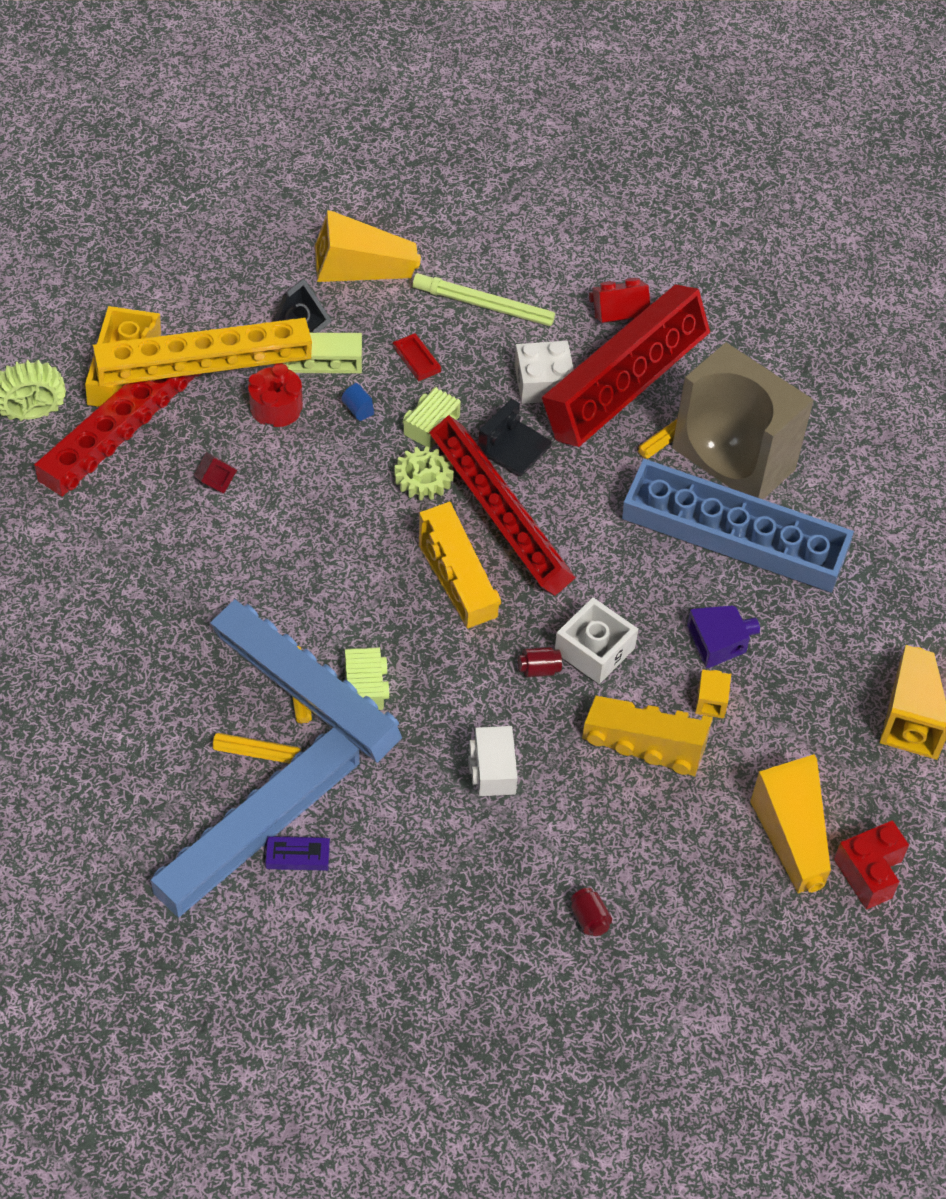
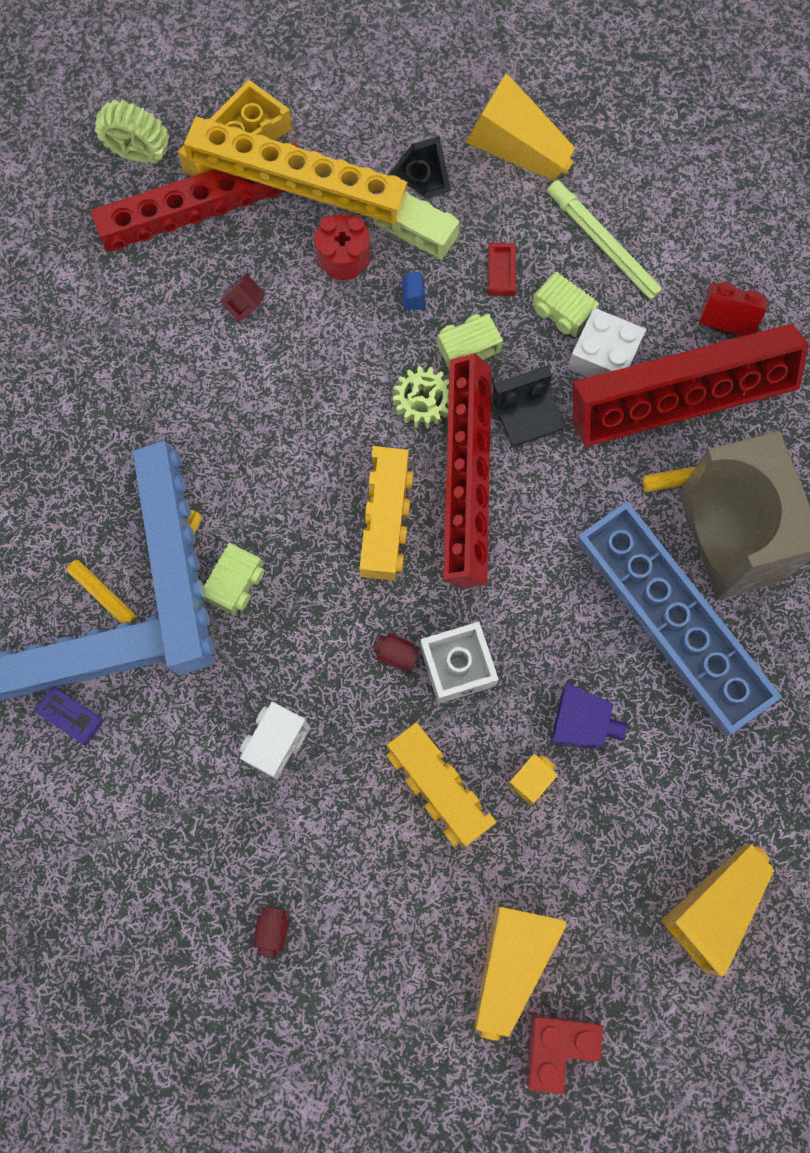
camera: 35 degrees right, 20 degrees up
(488, 356) = (564, 304): none -> yellowish green brick

